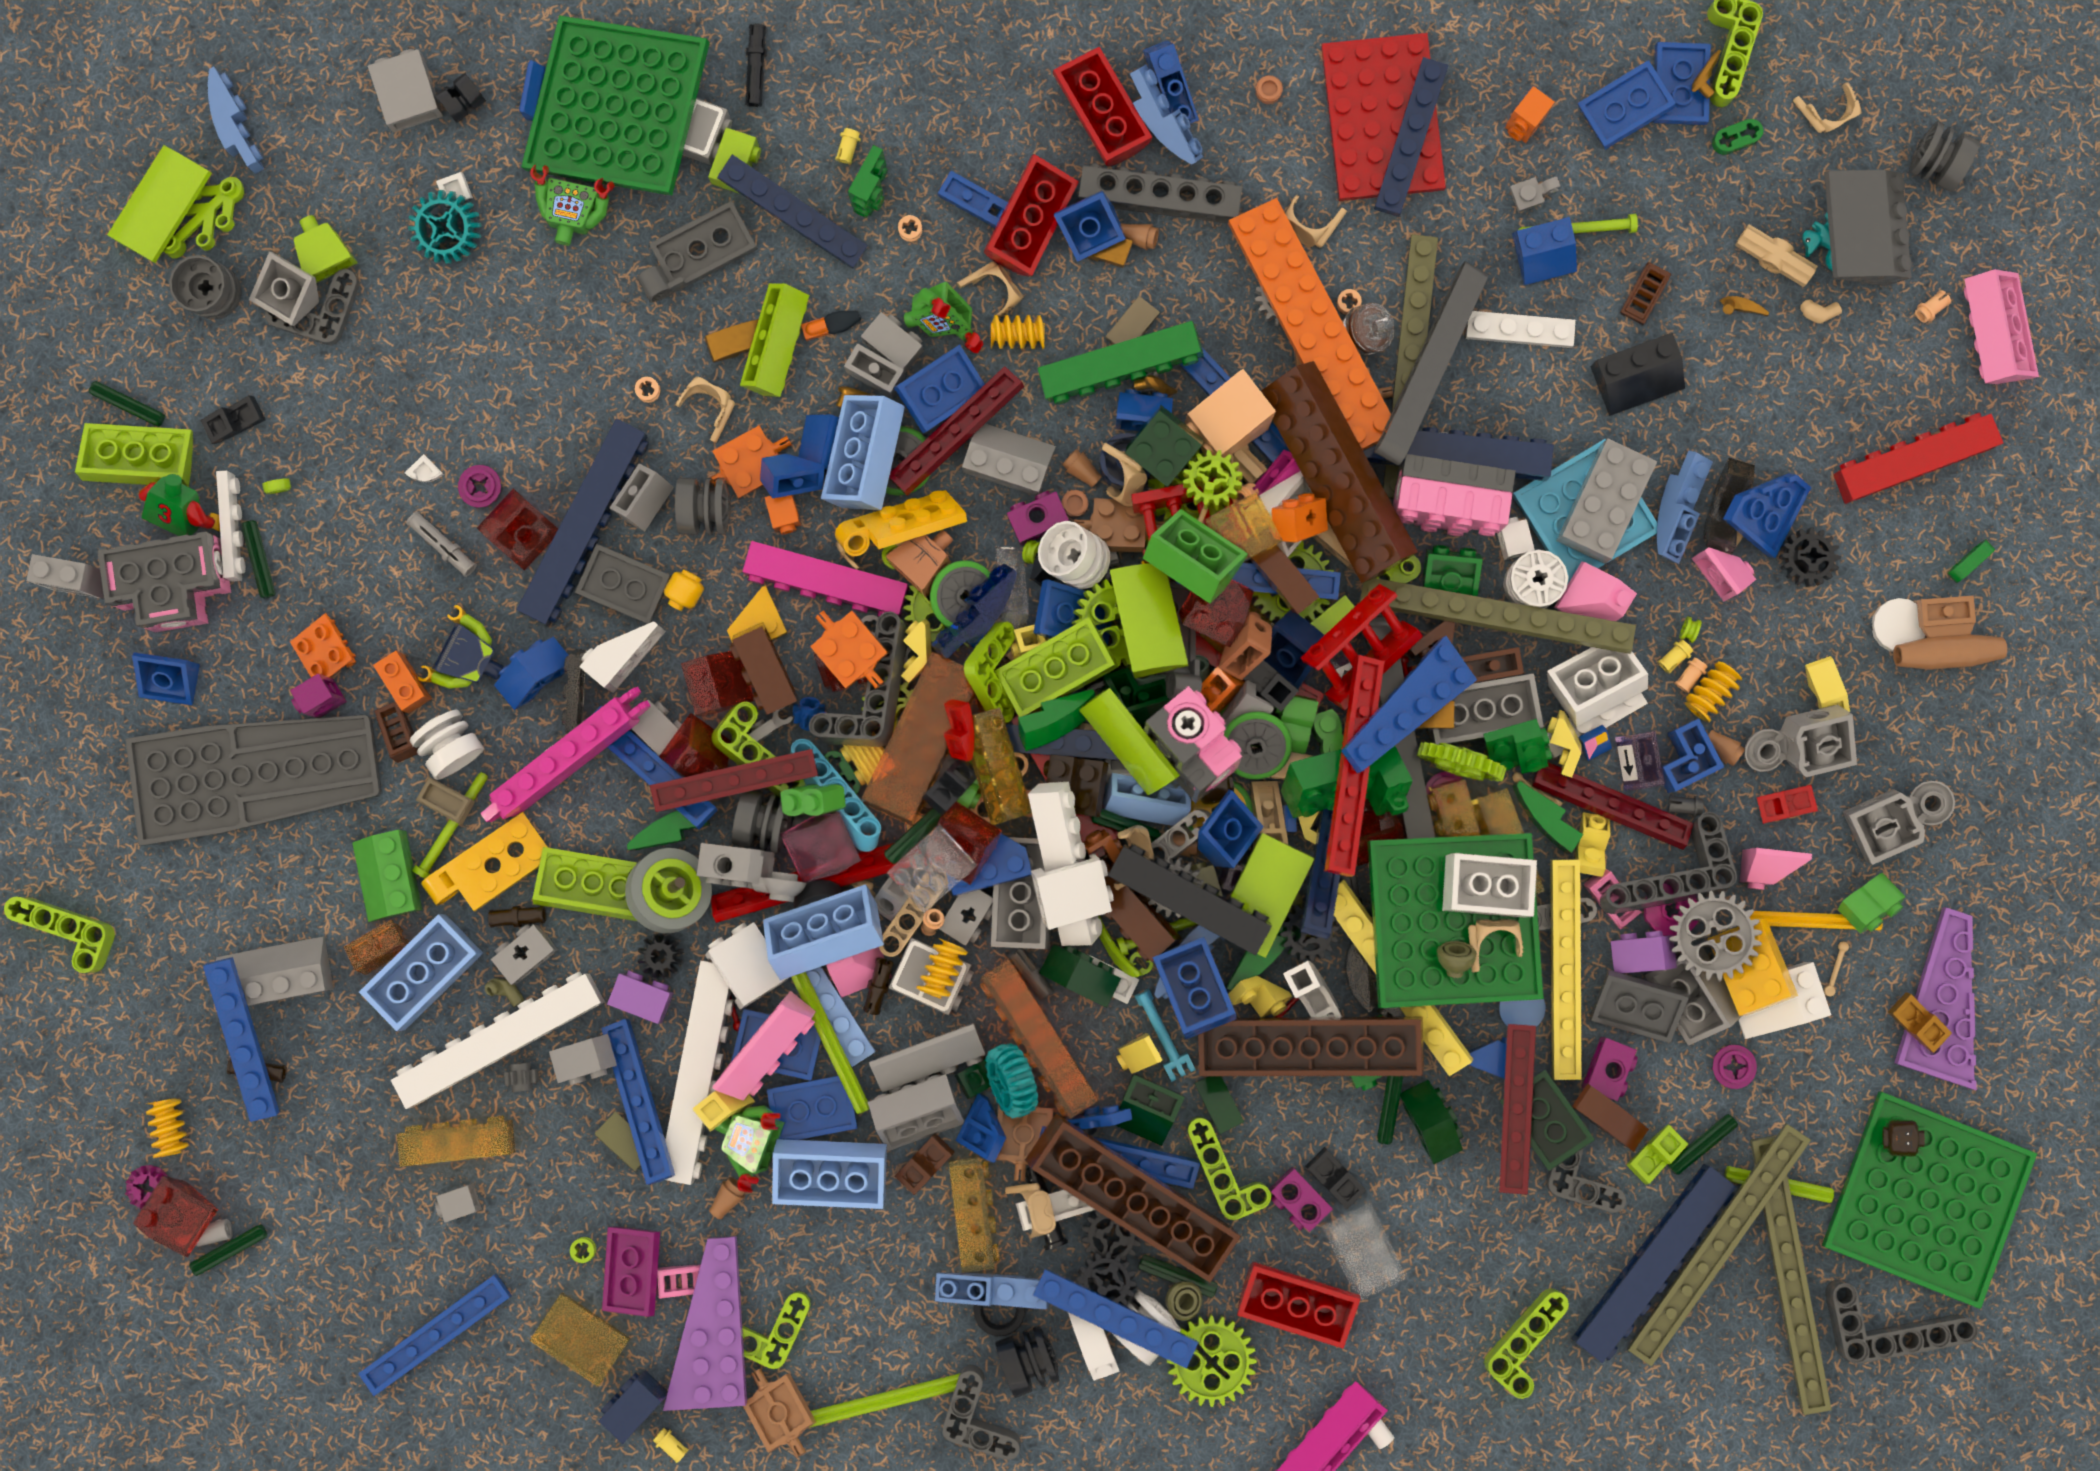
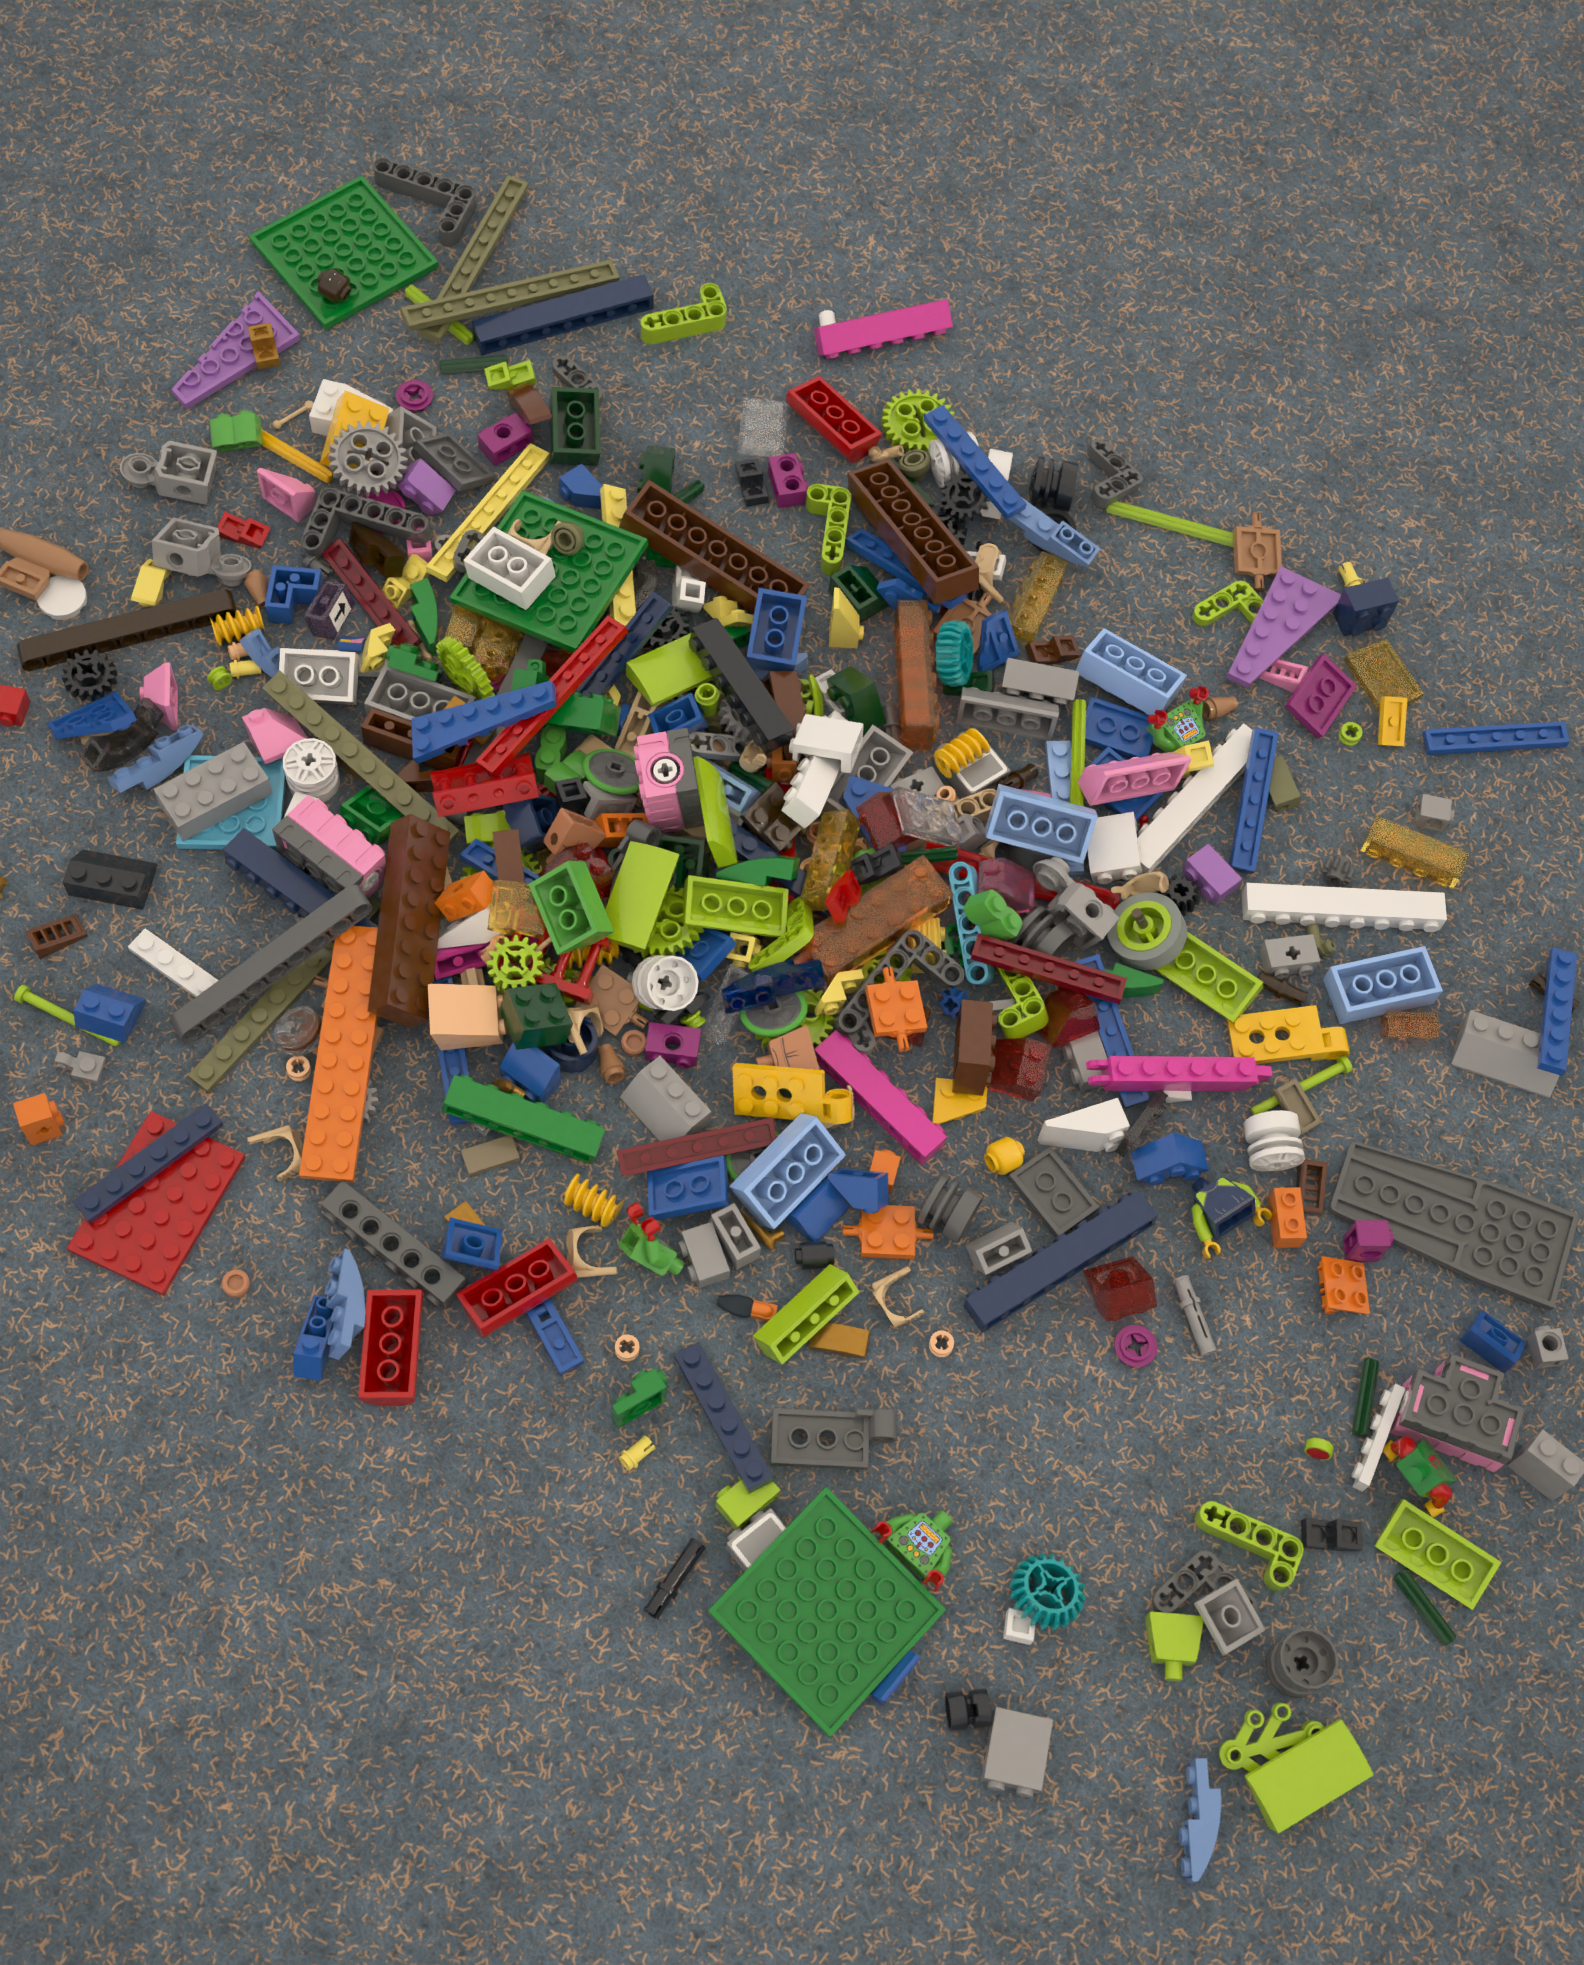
camera: 160 degrees left, 20 degrees down
(105, 695) = (1542, 1357): none -> light grey brick
(302, 372) = (1247, 1540): none -> lime beam
(387, 875) = (1375, 1076): bright green slope -> none
(424, 470) = (1178, 1390): white tile -> none
(545, 1284) = (1392, 721): none -> yellow plate
(583, 1058) = (1281, 853): light grey brick -> none
(700, 939) = (1143, 883): none -> tan helmet
(799, 400) = (814, 1255): none -> black brick
(1142, 235) = (432, 1221): medium nougat cone -> none
(1146, 1000) = (818, 615): medium azure hinge -> none
(1219, 1103) = (806, 565): dark green slope -> none
(1222, 870) = (707, 698): none -> lime cone
(1222, 1299) = (877, 455): none -> tan arm
(1517, 1109) = (592, 436): dark red plate -> none
(1557, 900) = (464, 549): none -> dark grey beam
(1640, 852) = (376, 551): none -> dark brown slope
(1669, 676) = (260, 652): none -> medium blue slope
(1812, 626) = (125, 629): none -> dark brown beam

